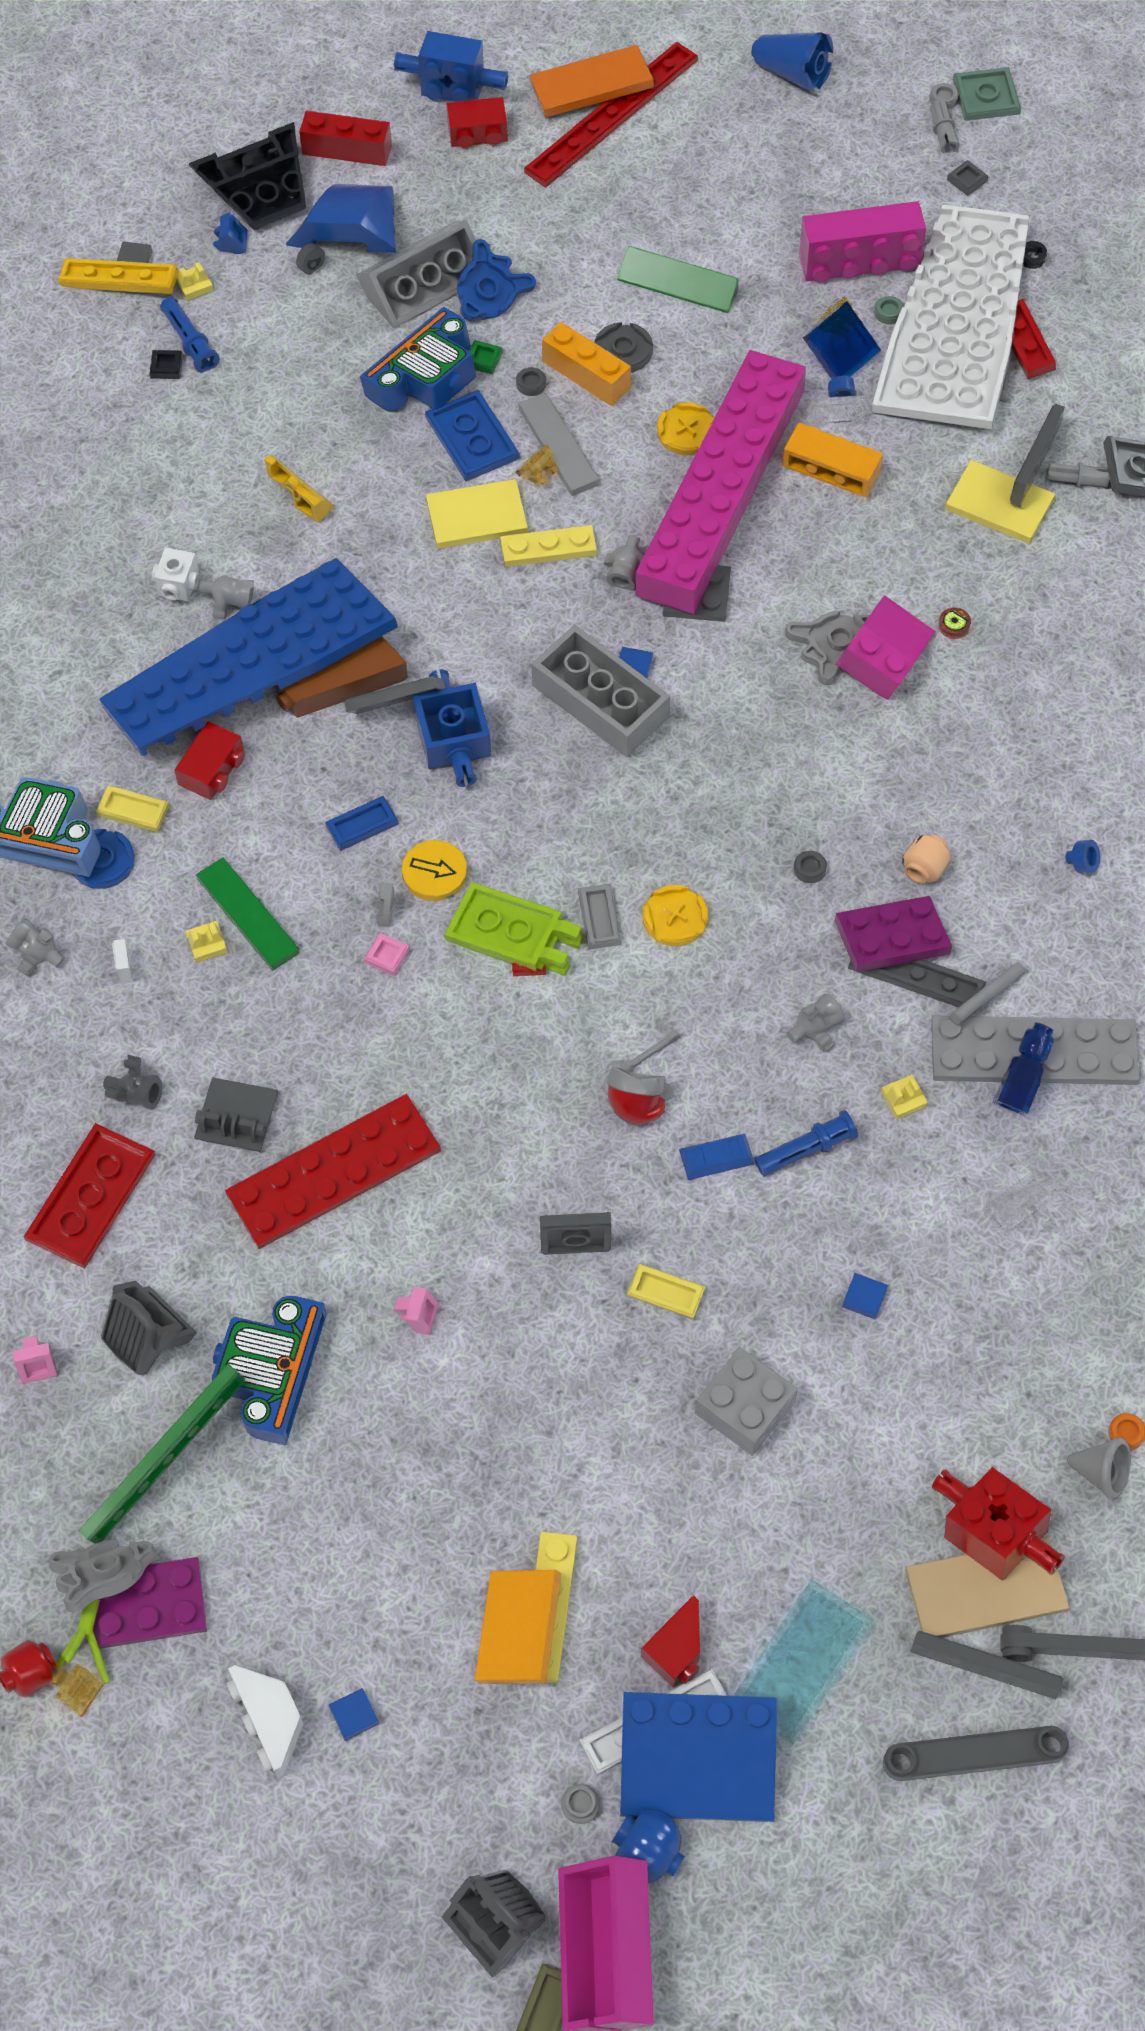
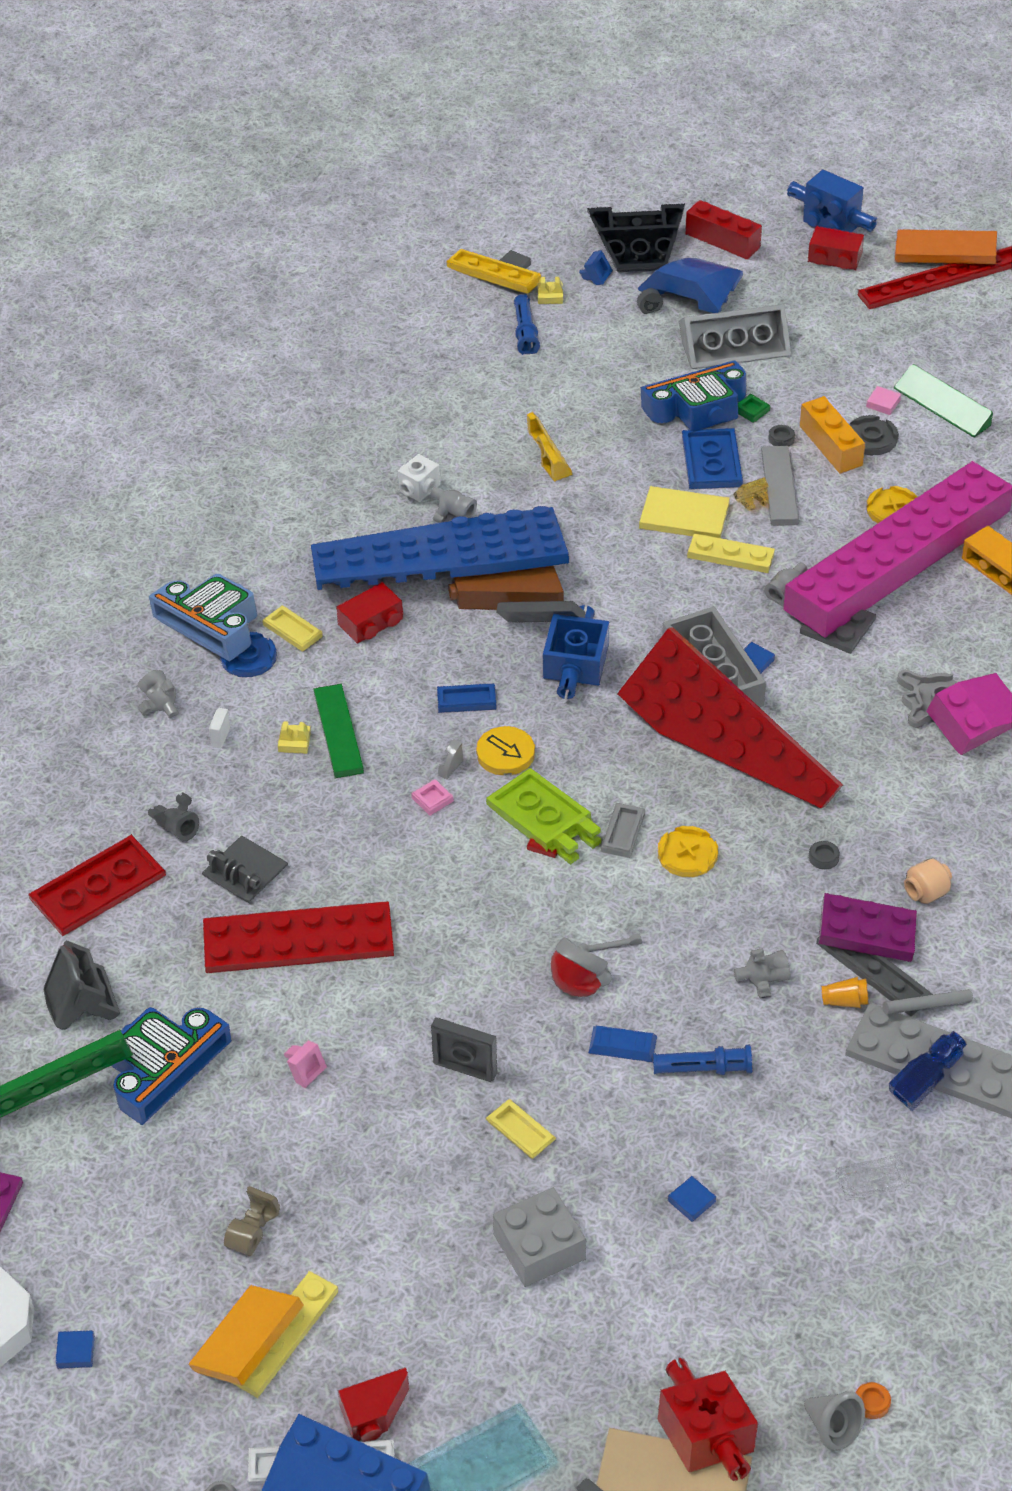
camera: 25 degrees right, 15 degrees down
(166, 364) = (496, 340): black tile -> none
(457, 1518) = (246, 1233): none -> dark tan leg
(488, 286) = (783, 358): blue tile -> none
(615, 299) = (883, 400): none -> bright pink tile
(624, 752) = (706, 711): none -> red wing
(904, 1097) = (811, 1057): light yellow tile -> none
(906, 1014) = (846, 993): none -> light orange cone

